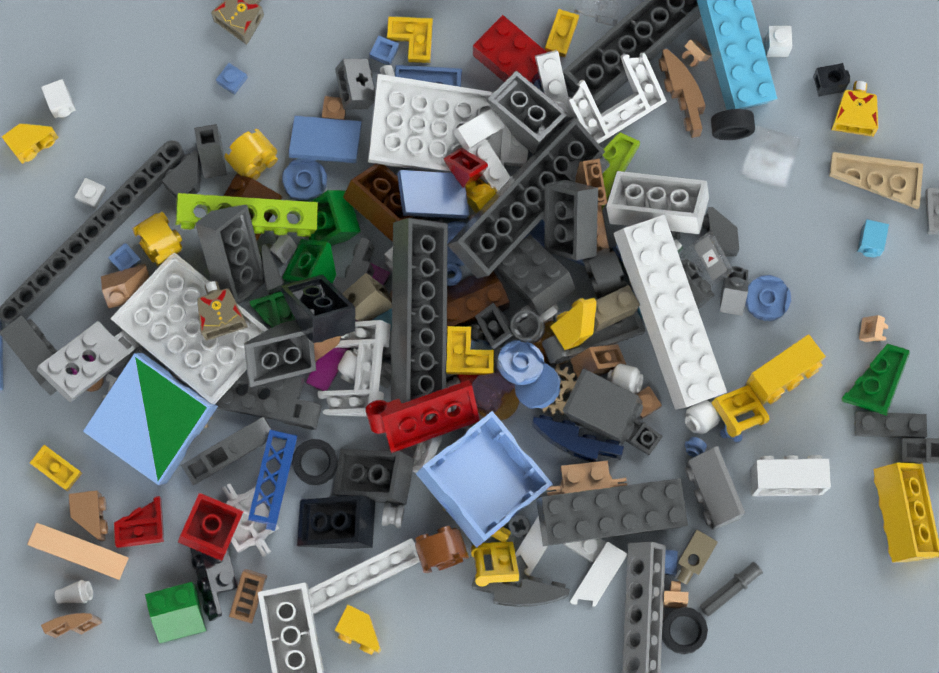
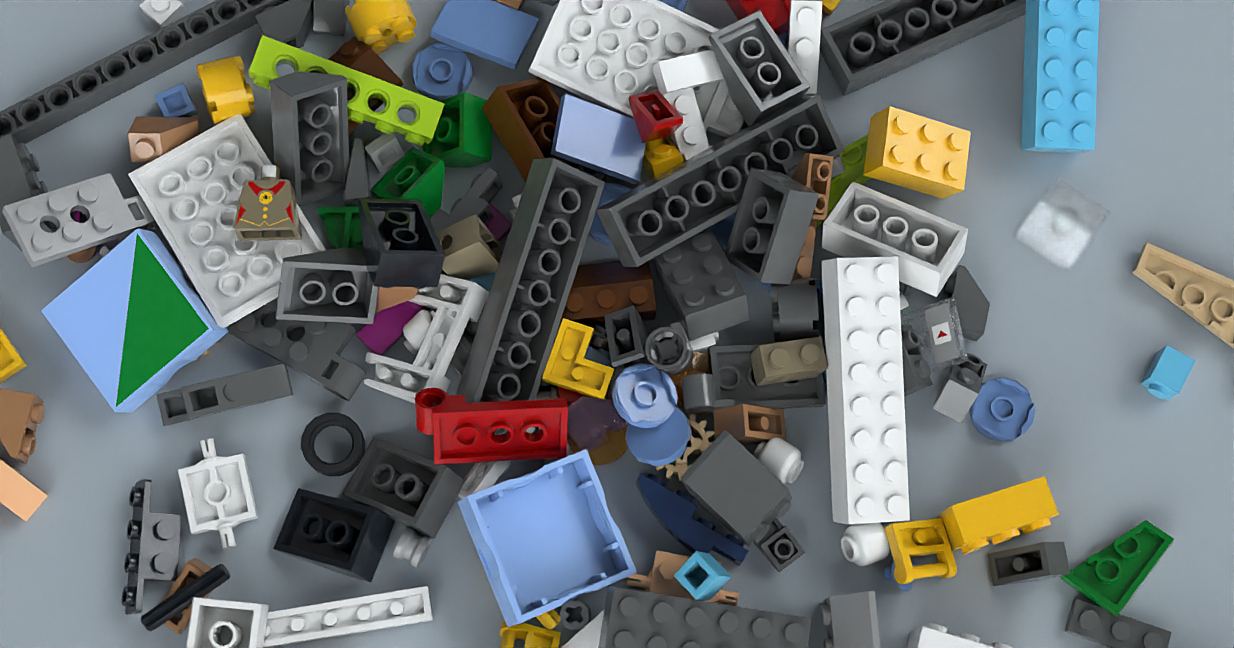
camera: 10 degrees right, 0 degrees up
(141, 526) = (79, 459): red wing -> none
(175, 612) = (83, 588): slope -> none
(210, 526) = (162, 489): red brick -> none
(249, 596) = (184, 597): none -> black axle
(280, 485) = (278, 458): blue fence -> none
(441, 549) = (460, 615): dark orange brick -> none
(453, 269) = (597, 245): medium blue plate -> none
(576, 324) = (734, 367): yellow slope -> none
(598, 472) = (702, 576): none -> medium azure brick
(646, 98) = (921, 95): white wedge -> none
(650, 402) = (802, 500): medium nougat plate -> none
(655, 137) = (917, 153): none -> yellow brick
(684, 87) = (975, 100): medium nougat slope -> none
(695, 446) = (844, 580): medium blue plate -> none
(698, 52) = (1006, 57): light nougat tile -> none
(732, 124) = (1025, 166): black tyre -> none
(778, 41) = (1118, 76): white brick -> none
(816, 397) = (1028, 563): none -> dark grey slope
(825, 86) = (1164, 155): black brick -> none
(857, 111) = (1195, 199): yellow torso -> none
(872, 328) = (1131, 494): light nougat tile -> none

